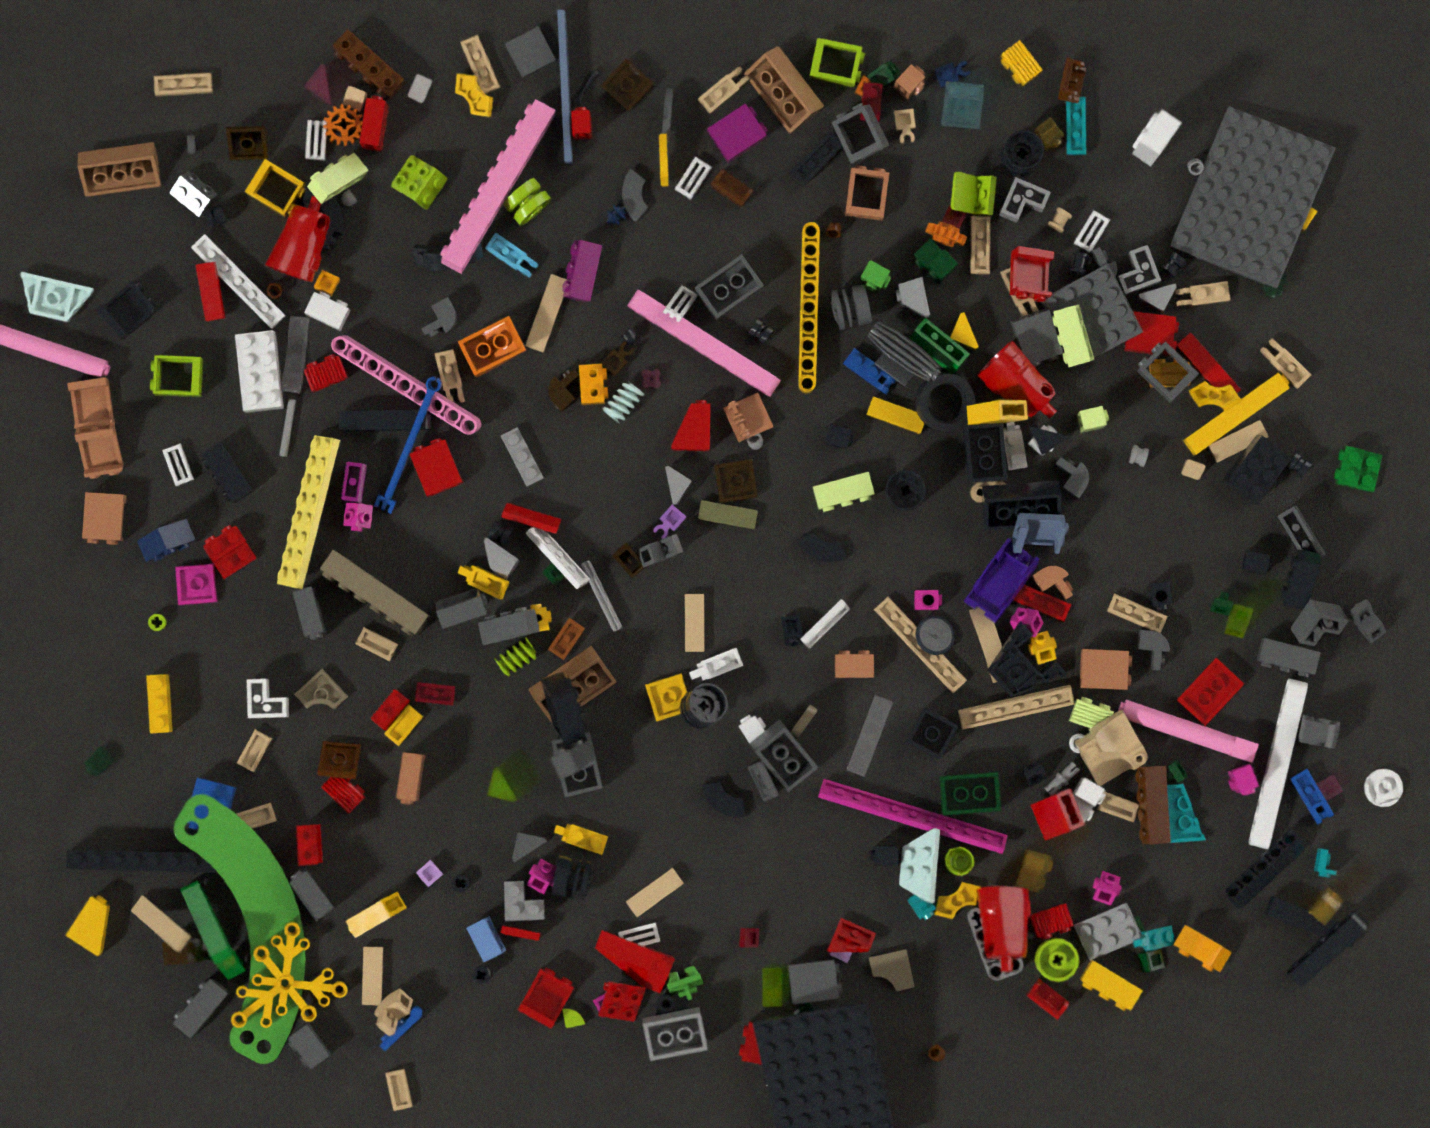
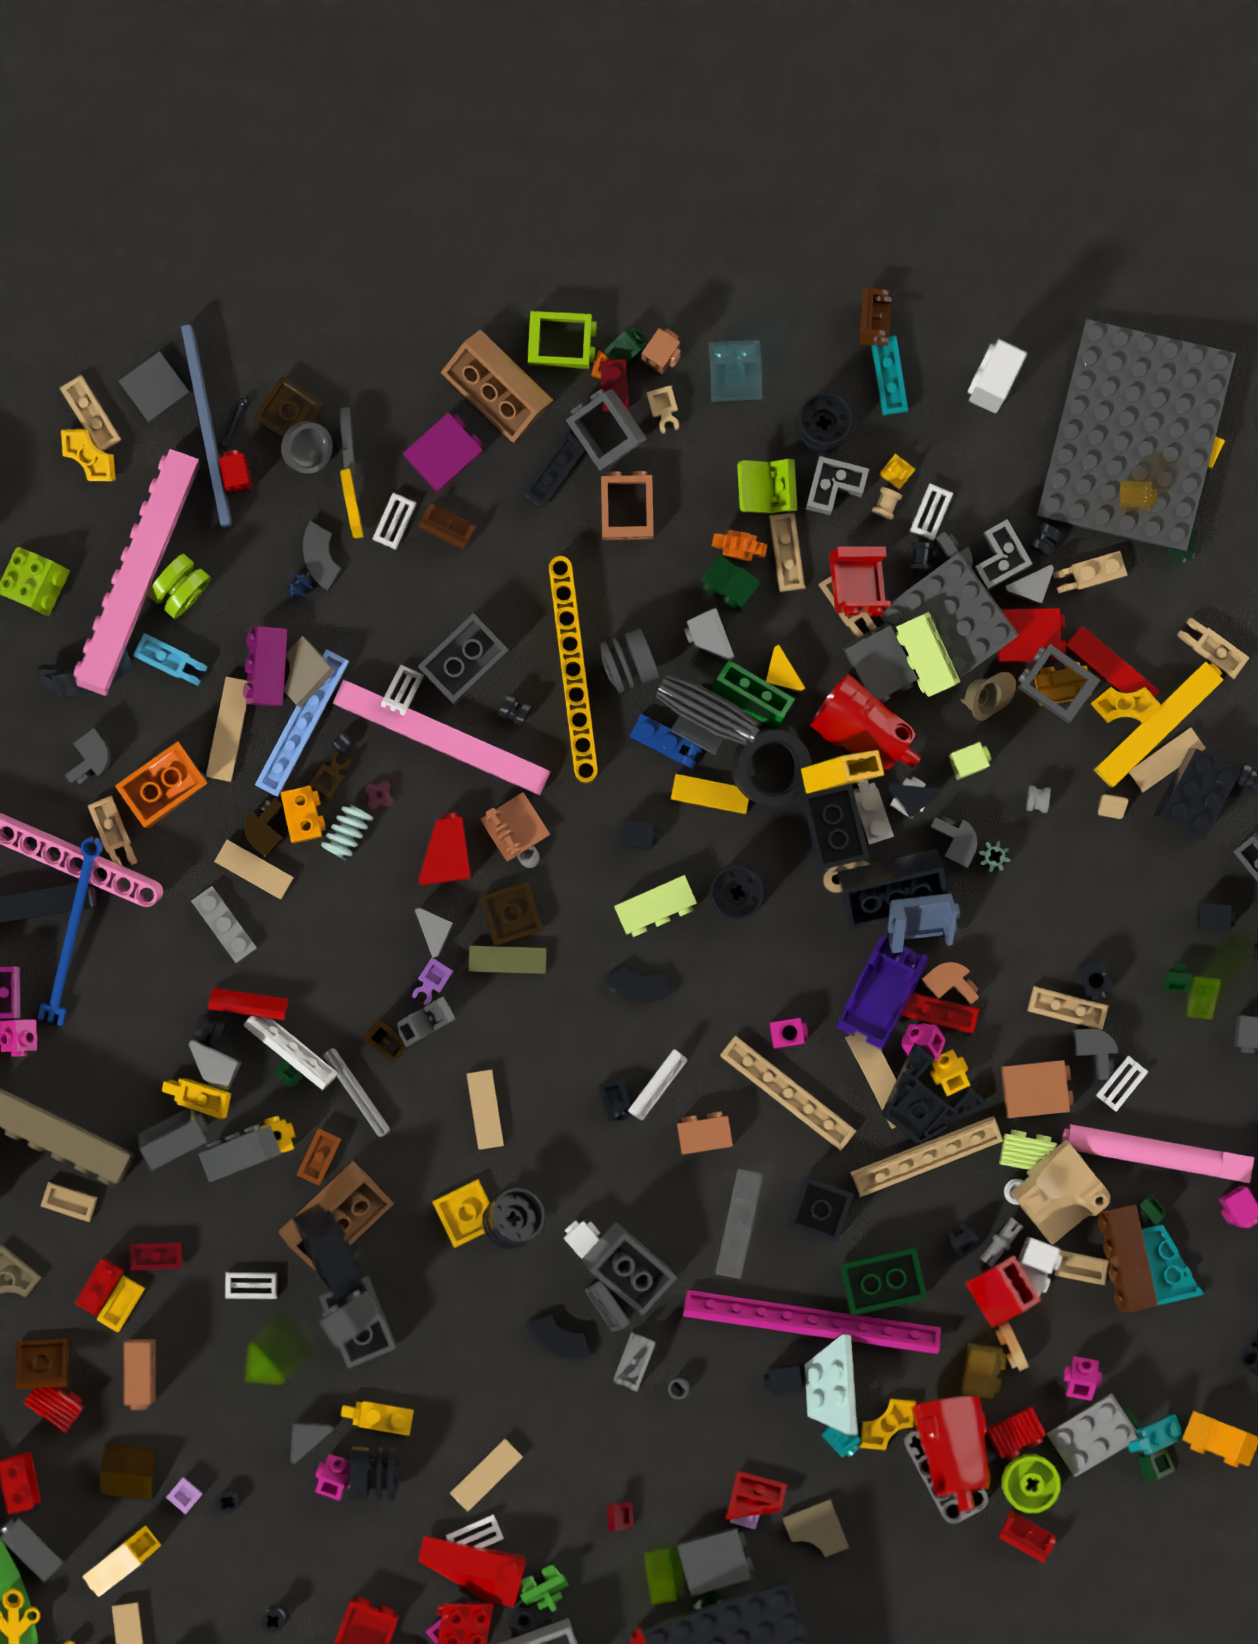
camera: 10 degrees left, 0 degrees up
(390, 849) = (128, 1471): none -> dark brown slope
(419, 88) = (15, 457): white sticker -> none
(435, 467) = (111, 956): red panel -> none
(486, 939) = (273, 1571): medium blue hinge -> none
(516, 657) = (256, 1192): lime piece -> none
(517, 907) = (309, 1523): light grey brick -> none
(518, 729) = (274, 1285): none -> white tile
(523, 933) = (317, 1556): red tile -> none
(550, 419) = (254, 869): none -> tan tile
(602, 317) = (299, 730): none -> light blue plate
(611, 280) = (307, 671): none -> dark tan tile
(636, 113) = (306, 447): none -> dark grey piece
(717, 665) = (524, 1161): white hinge -> none
(722, 91) = (415, 400): tan hinge -> none
(776, 825) = (634, 1361): none -> light grey hinge
(803, 721) = (649, 1218): dark tan beam -> none
(803, 851) = (675, 1391): none -> dark grey hinge
(830, 230) = (590, 562): reddish brown hinge -> none
(875, 277) = (654, 616): bright green brick -> none
(935, 635) = (805, 1077): dark grey wheel -> none
(936, 1053) = (891, 1631): reddish brown hinge -> none
(949, 73) = (712, 331): dark blue plate -> none
(953, 217) = (746, 521): dark red plate -> none
(959, 861) = (882, 1372): lime hair -> none
(1020, 63) = (804, 303): yellow brick -> none
(1049, 134) = (856, 391): clear yellow brick -> none
(1055, 848) = (1006, 1336): none -> tan plate
(1070, 198) = (897, 471): none -> yellow tile
(1102, 488) = (1001, 859): none -> sand green gear
(1110, 986) = (1107, 1506): yellow brick -> none
(1114, 373) = (989, 695): none -> dark tan piece
(1171, 683) = (1108, 1100): none -> white tile
(1195, 166) = (1055, 405): light grey hinge -> none
(1210, 691) = (1179, 1097): red plate -> none
(1246, 242) = (1137, 496): none -> clear yellow brick

